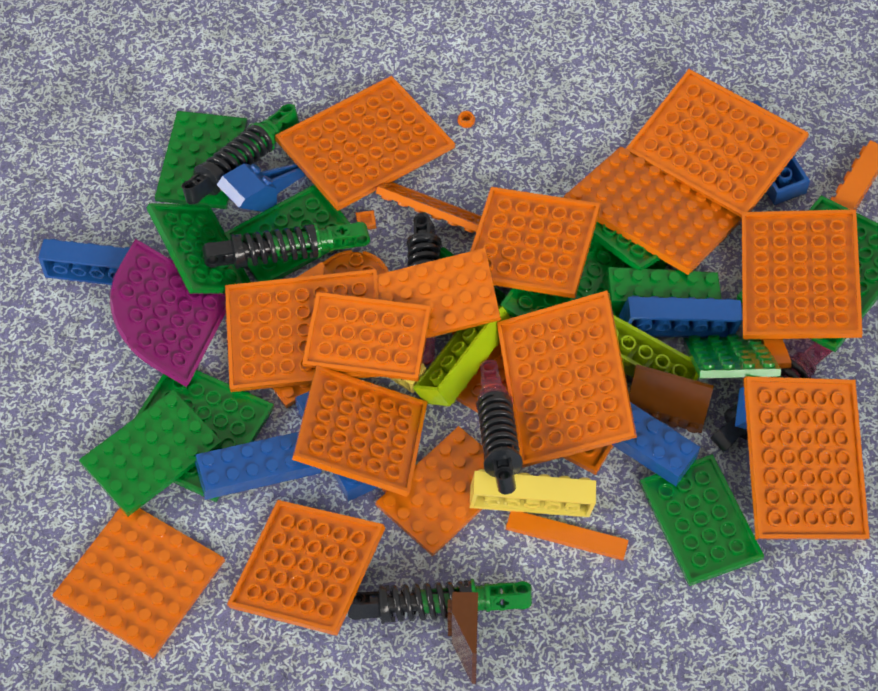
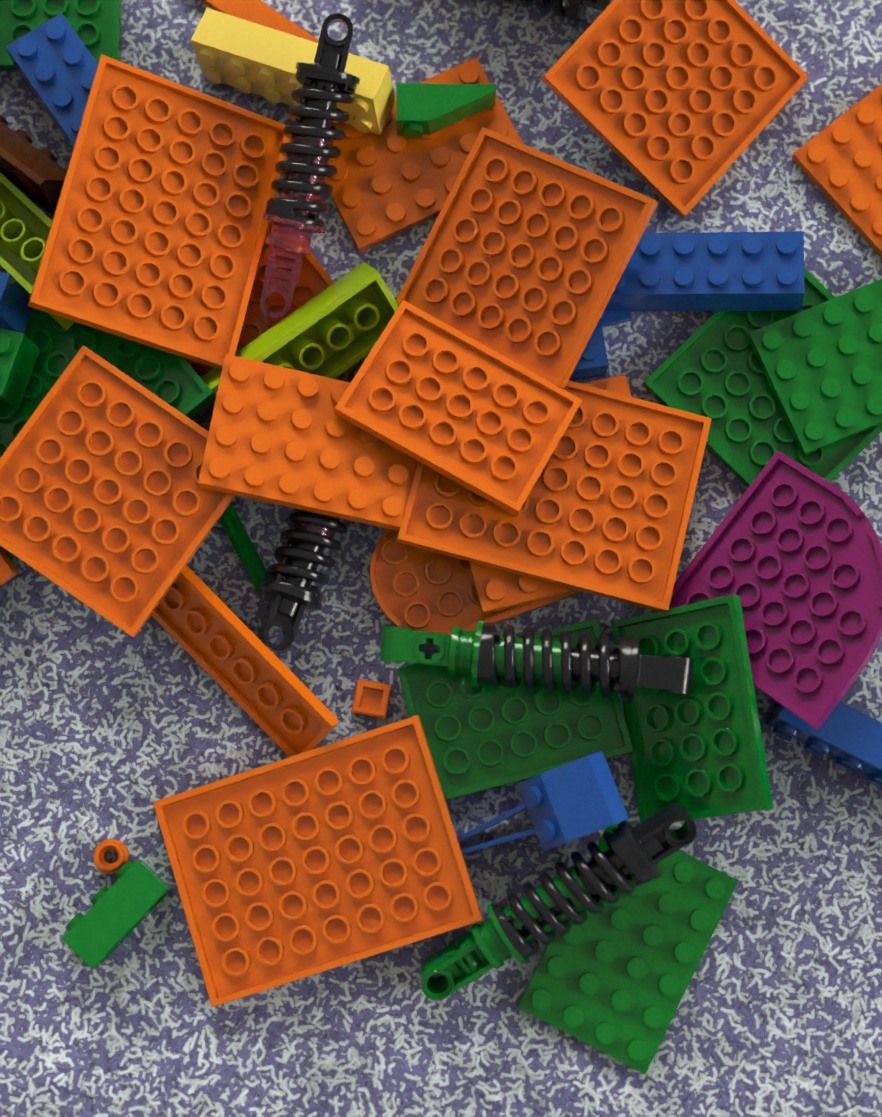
camera: 160 degrees left, 20 degrees up
(444, 504) = (431, 107): none -> green slope
(452, 97) = (115, 912): none -> green brick

